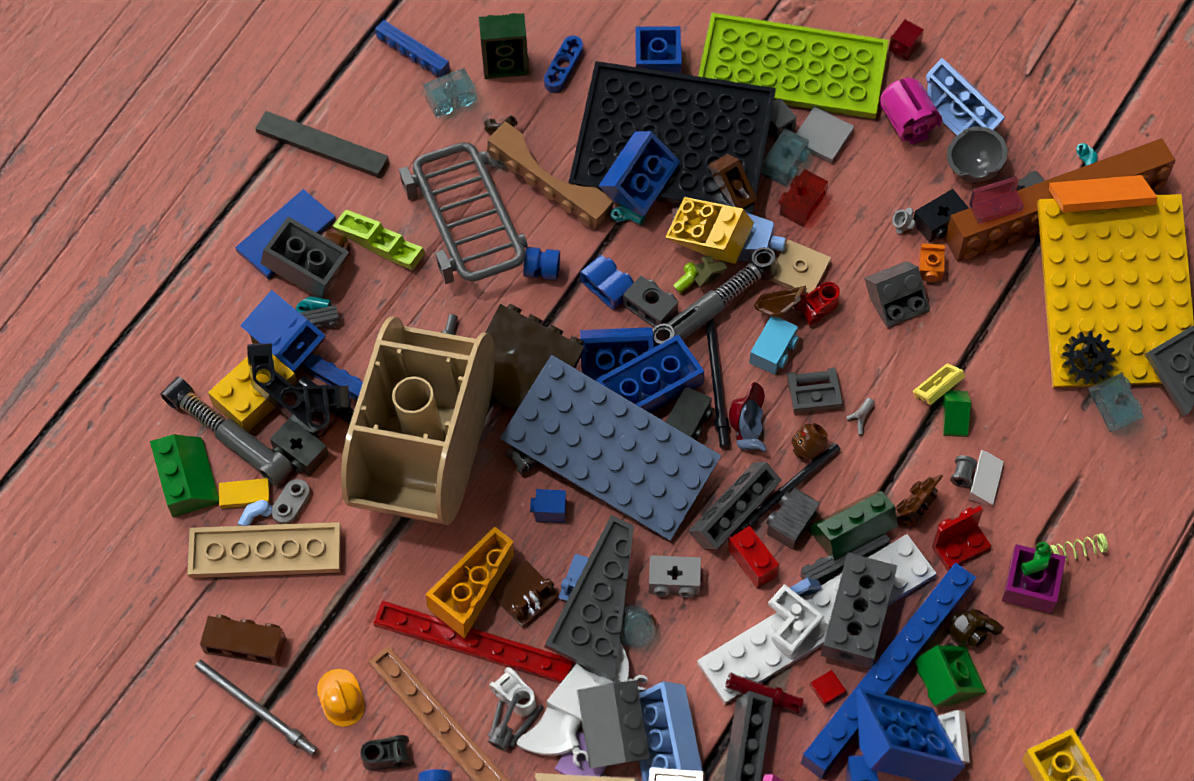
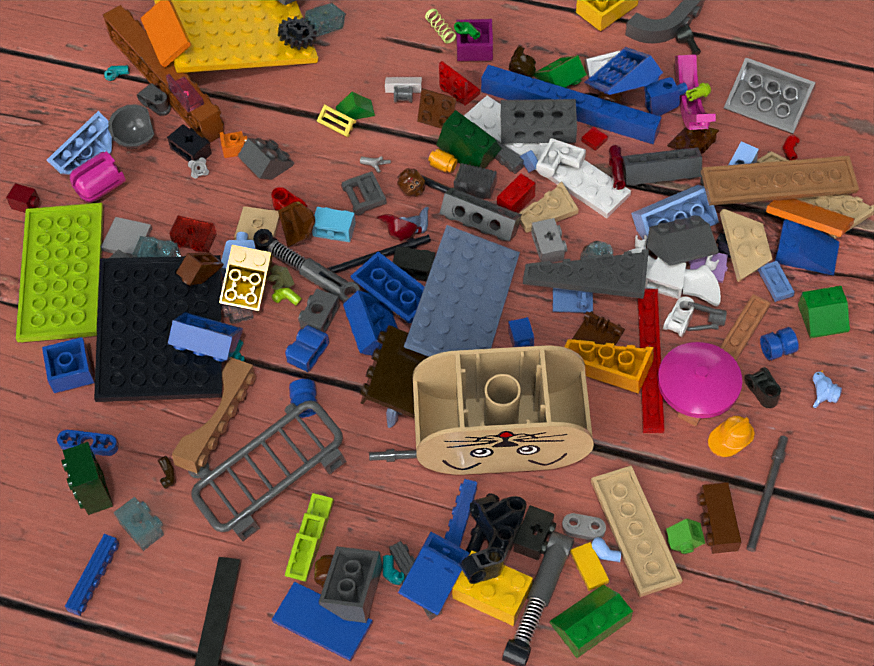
camera: 105 degrees left, 5 degrees down
(232, 592) = (685, 536): none -> bright green brick
(419, 681) = (699, 380): none -> dark pink dish
(725, 594) = (554, 204): none -> tan wing
(838, 490) = (442, 161): none -> light orange brick

